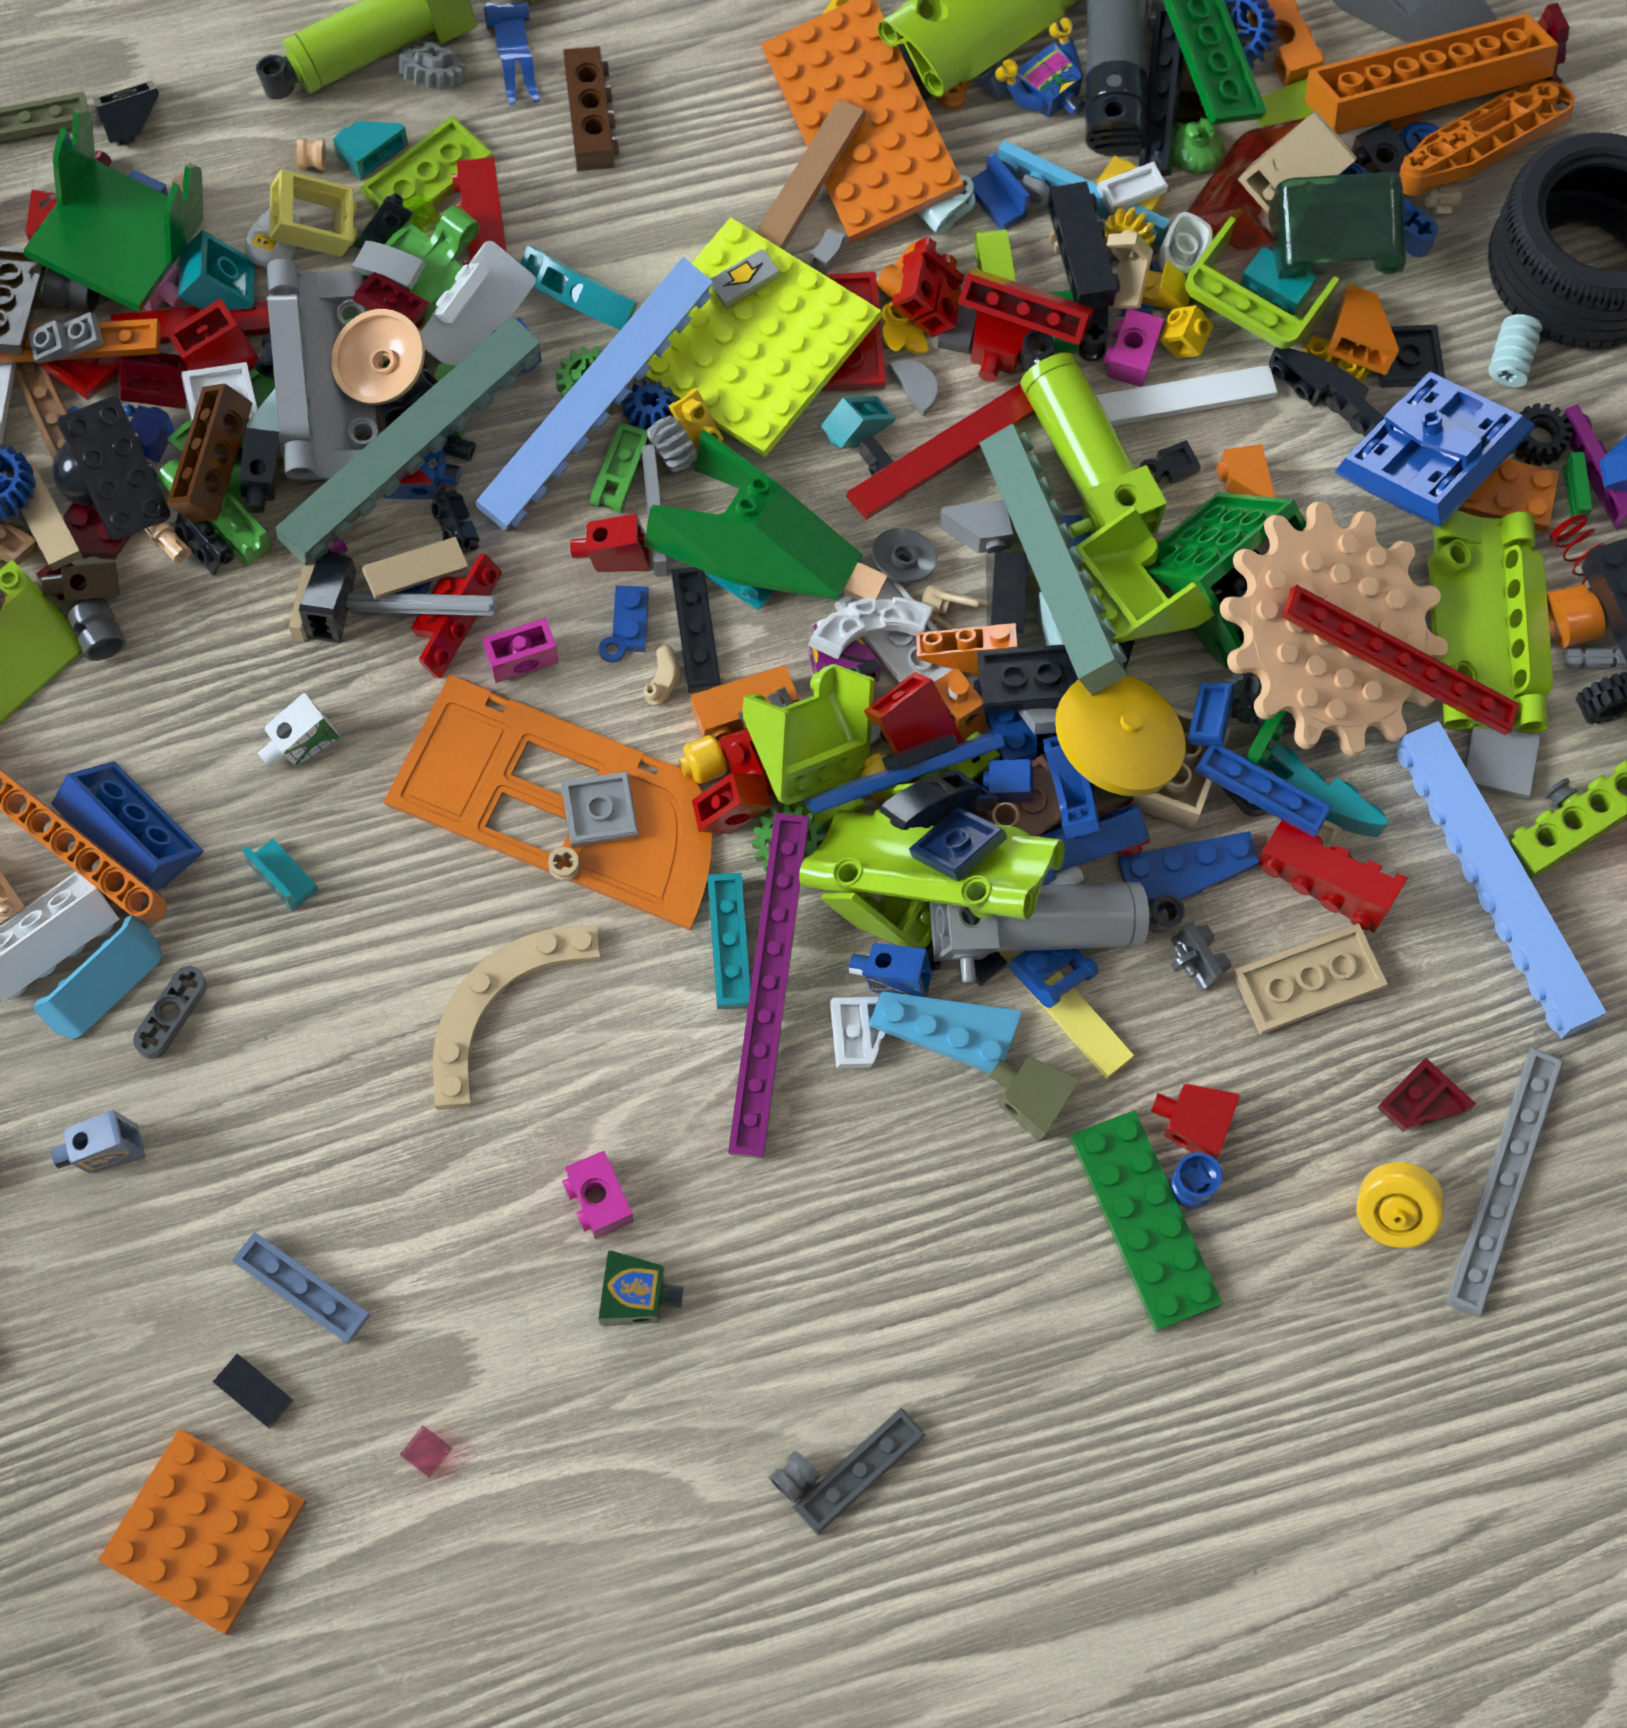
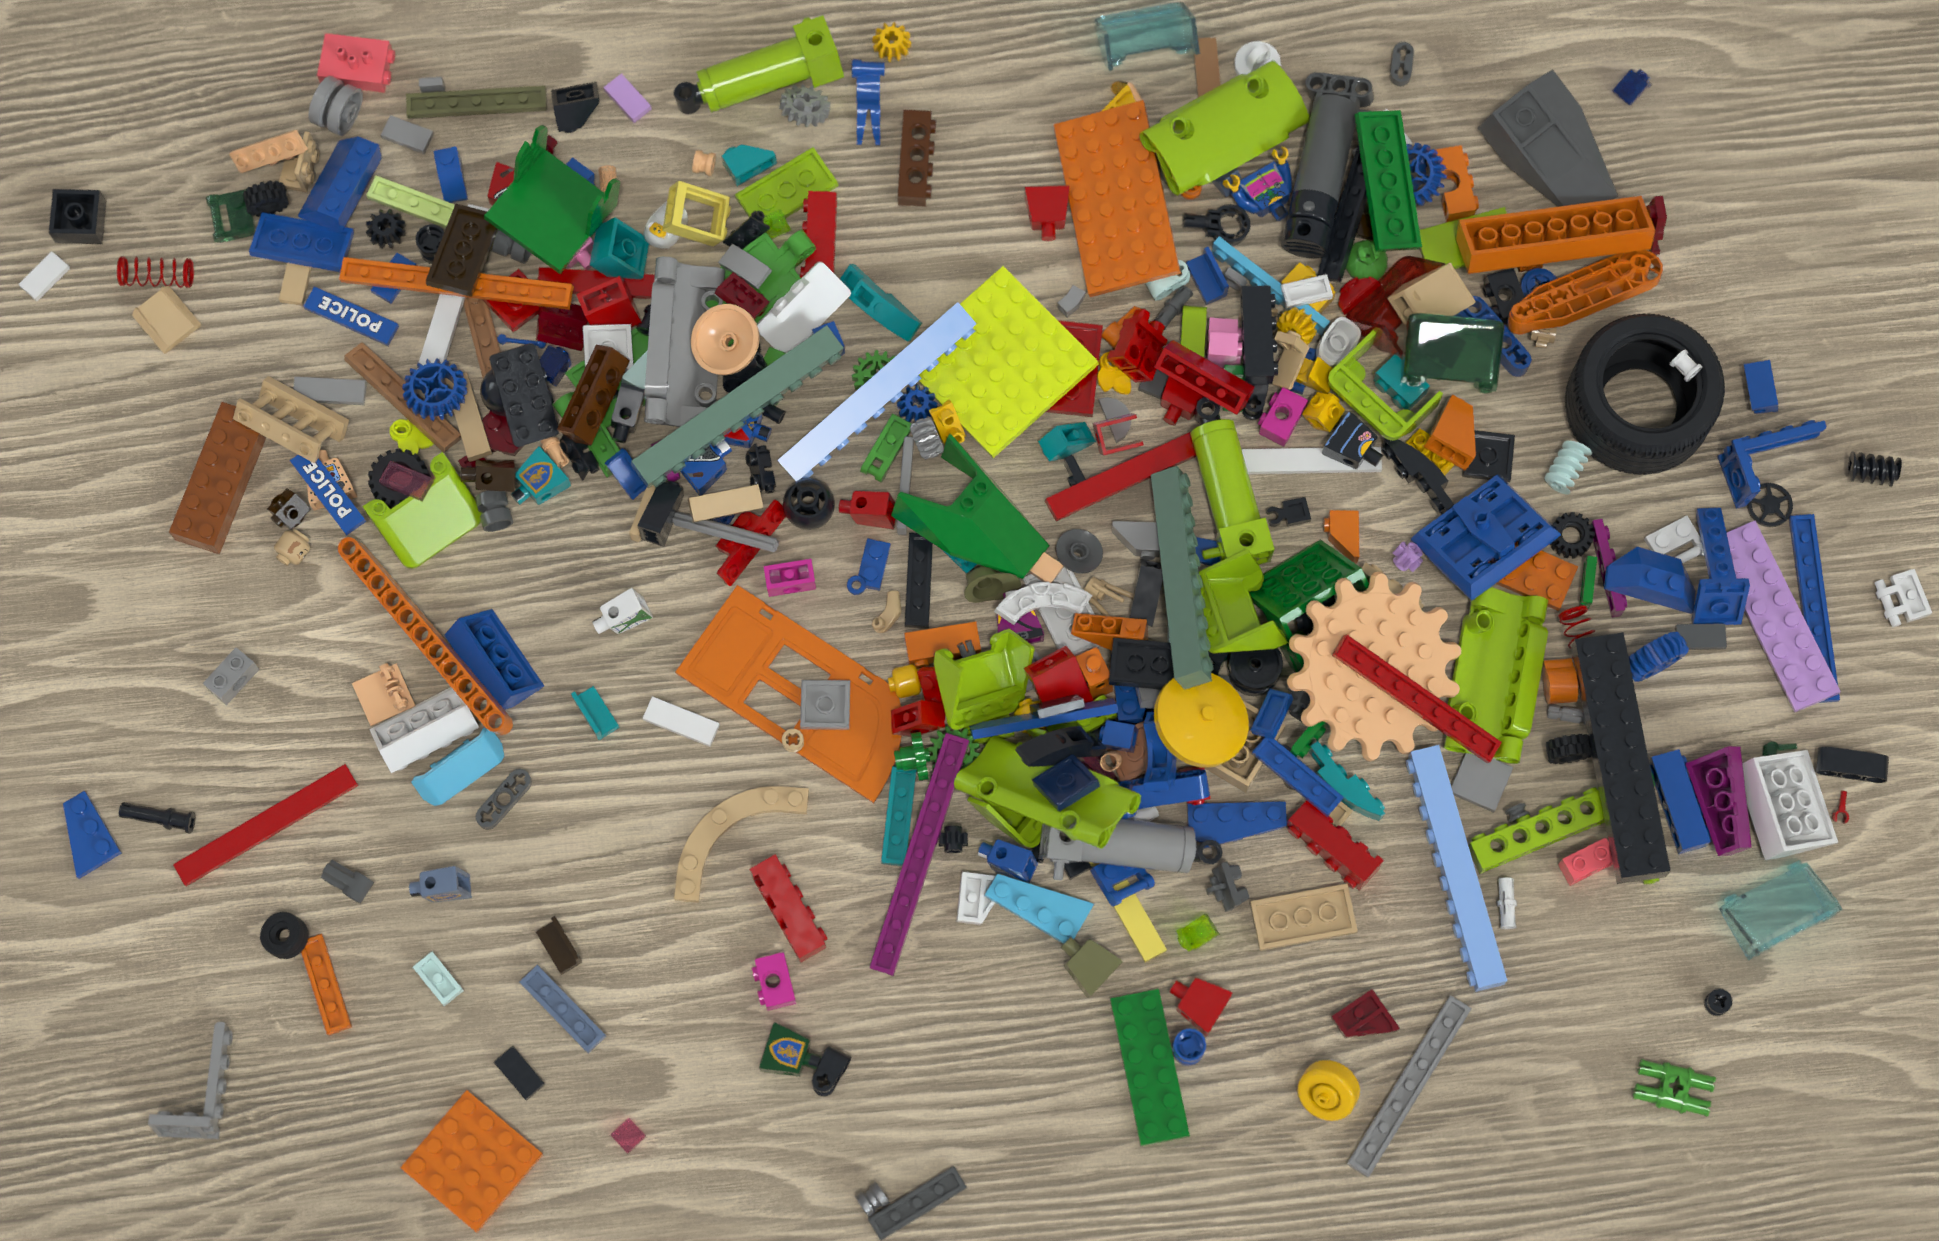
camera: 15 degrees right, 5 degrees up
(61, 341) = (507, 289): light grey slope -> none
(113, 1277) = (438, 978): none -> light aqua plate
(154, 580) = (539, 479): none -> teal torso
(196, 94) = (627, 98): none -> lavender tile
(271, 553) = (625, 474): none -> blue tile
(281, 1201) = (558, 946): none -> dark brown panel
(382, 530) = (707, 469): none -> blue torso
(403, 866) = (681, 721): none -> white tile
(529, 565) = (804, 488): none -> black wheel
(598, 1089) = (787, 908): none -> red wedge
(700, 1301) = (831, 1067): none -> black piece
(736, 855) = (913, 757): none -> green plant
(744, 278) = (1002, 318): light grey tile -> none
(772, 143) = (1047, 209): none -> red torso
(793, 616) = (989, 585): none -> olive piece
(811, 173) = (1068, 241): medium nougat tile -> none
(811, 957) = (953, 839): none -> black gear
(905, 415) = (1099, 438): none -> red piece
(963, 235) = (1174, 306): none -> dark grey pin
(990, 131) = (1215, 230): none -> black pin
(1039, 263) = (1224, 342): none -> bright pink brick
(1171, 1025) = (1197, 933): none -> clear neon green bracket
(1173, 663) = (1255, 680): none -> black wheel
(1192, 184) = (1355, 291): none -> red tile
(1234, 363) = (1352, 443): none -> black torso
(1338, 492) = (1407, 556): none -> lavender gear
(1576, 913) = (1507, 903): none -> white pin

